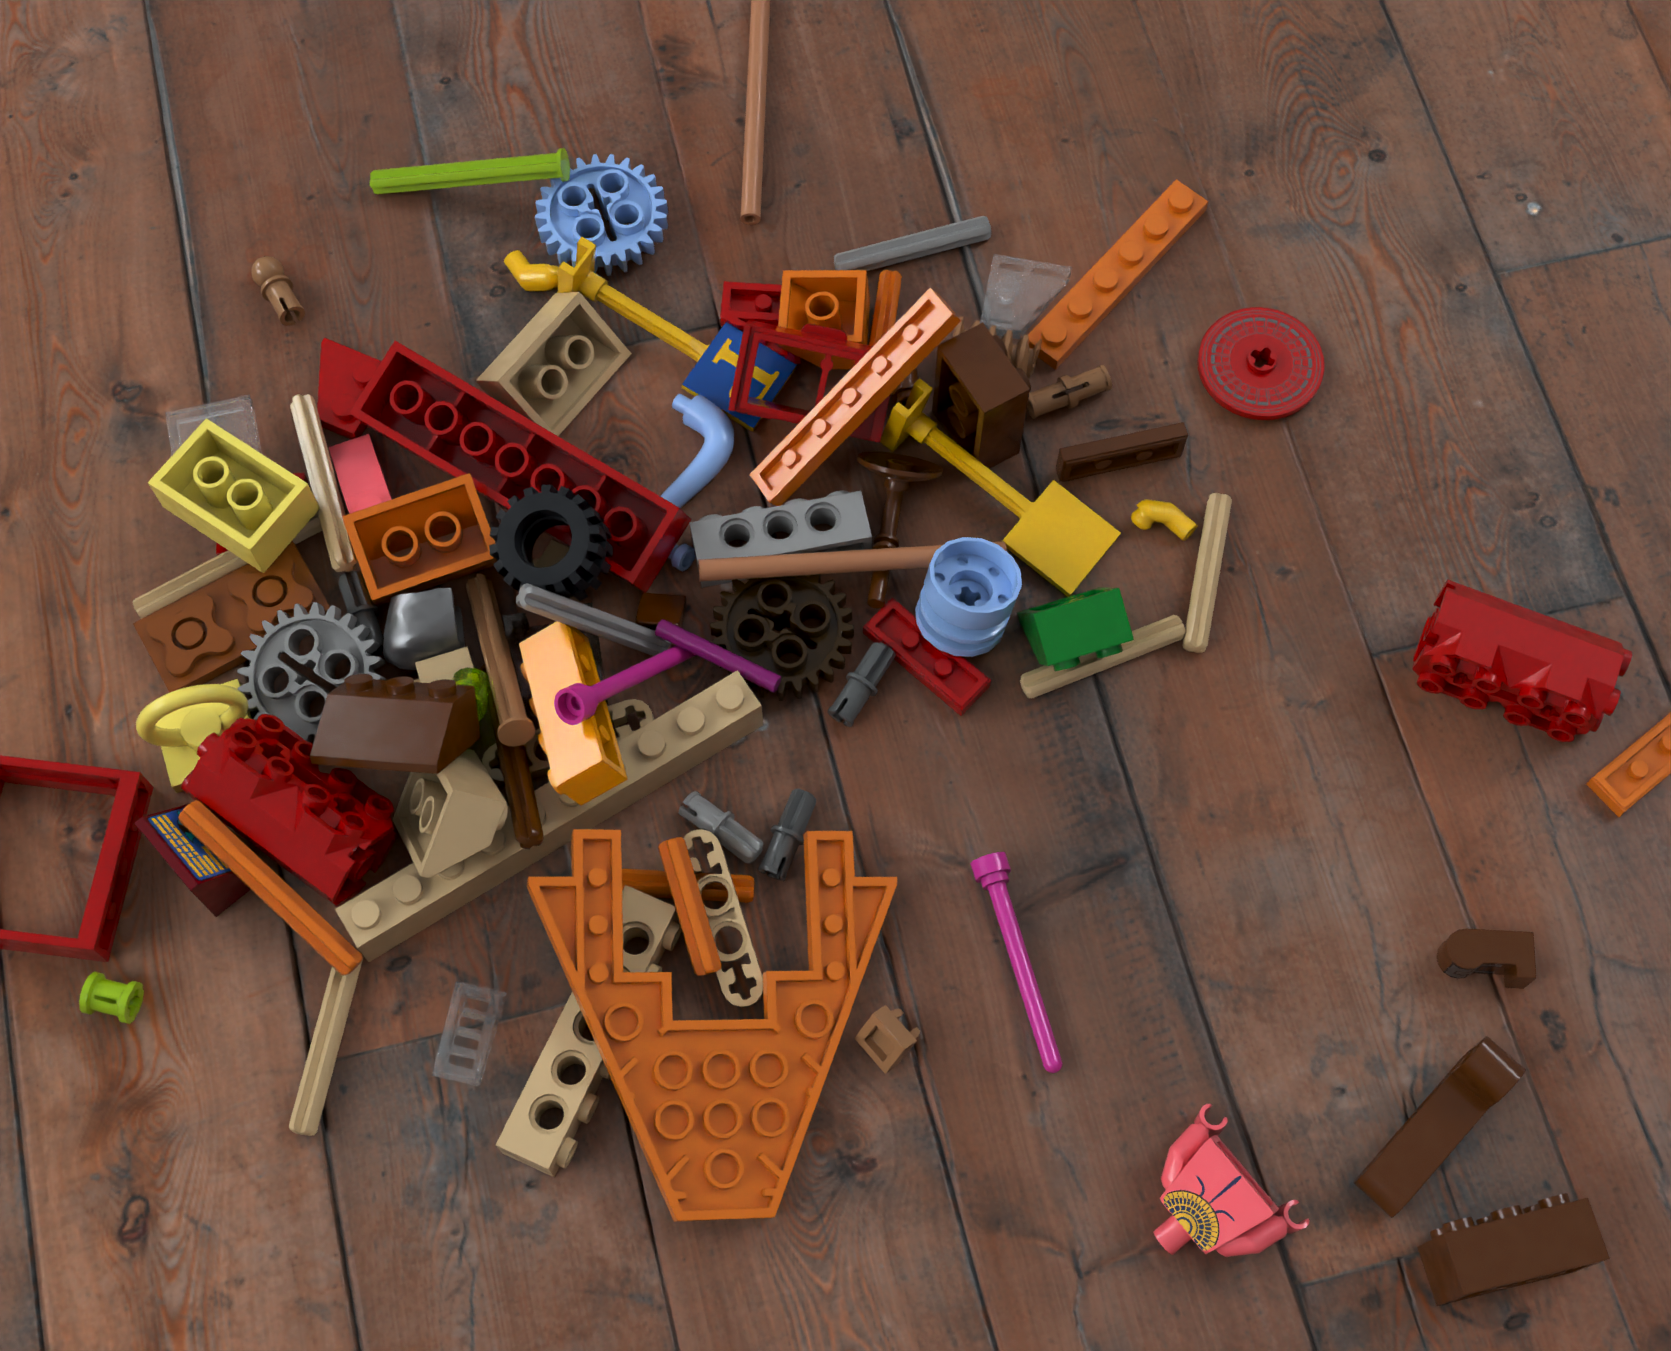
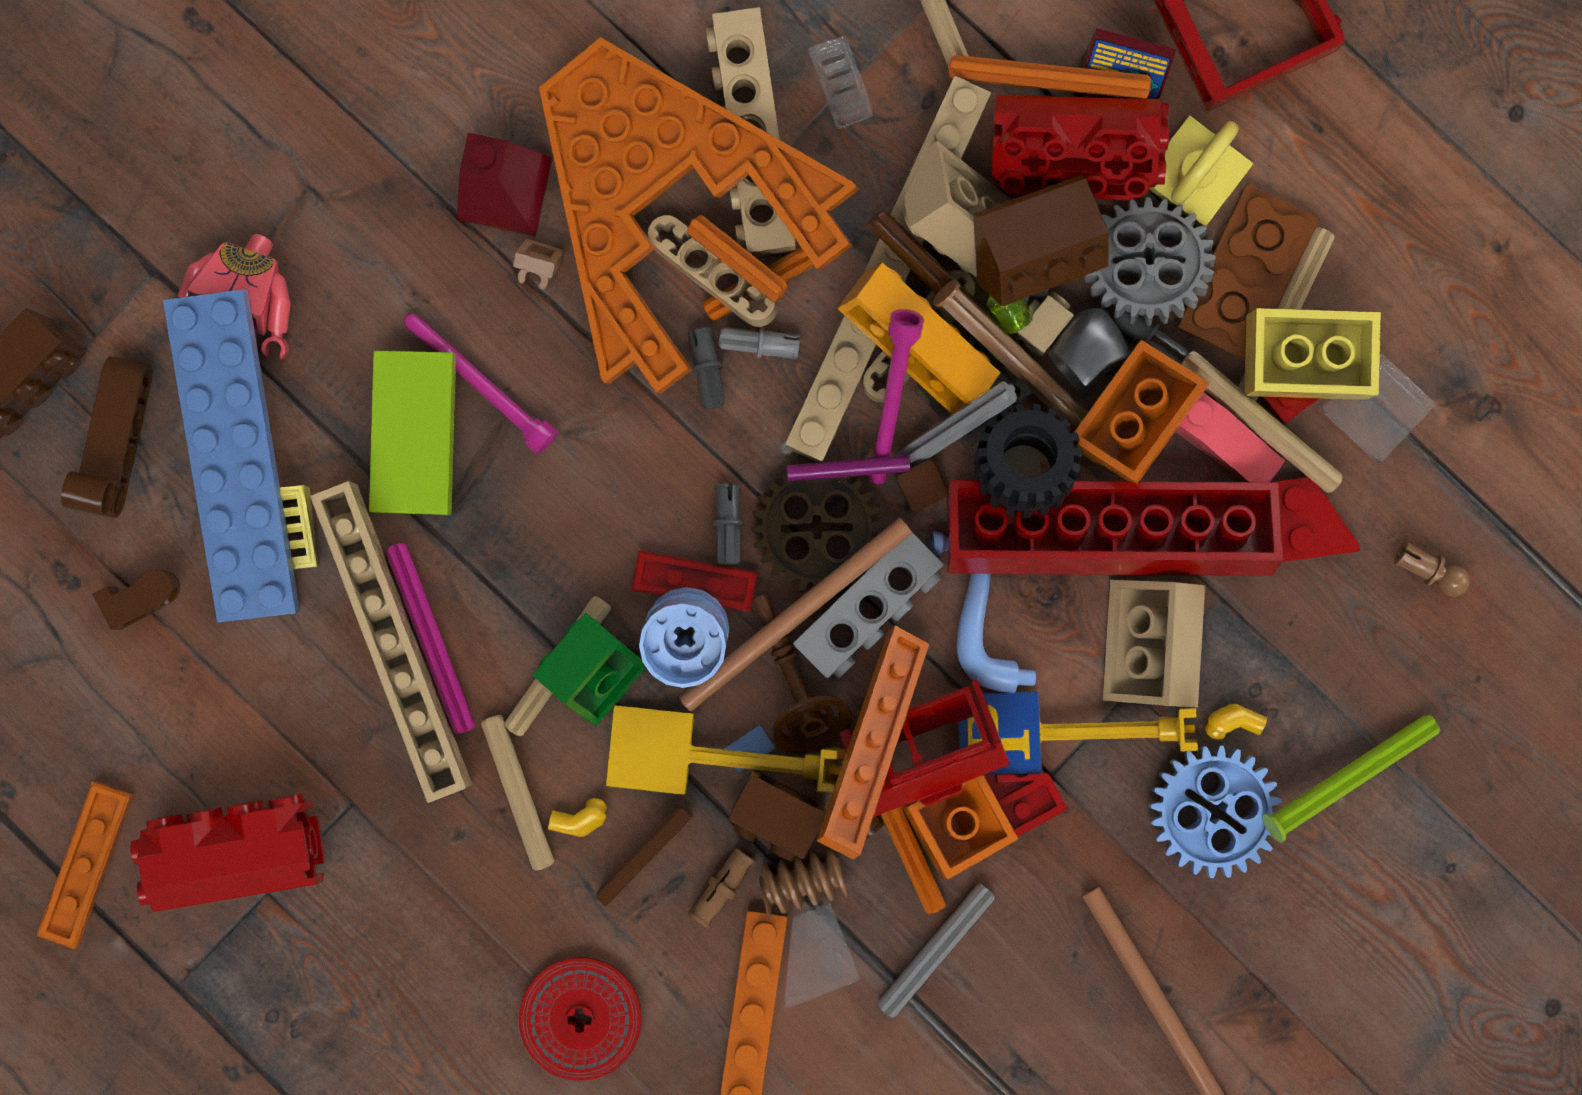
camera: 150 degrees right, 20 degrees up
(875, 1141) = (502, 184): none -> dark red slope
(966, 493) = (754, 741): none -> medium blue sticker
(1116, 949) = (412, 432): none -> lime tile
(1211, 753) = (429, 638): none -> dark pink axle
(1251, 764) = (391, 641): none -> tan brick
(1279, 965) = (304, 509): none -> light yellow slope
(1314, 1033) = (231, 455): none -> medium blue plate

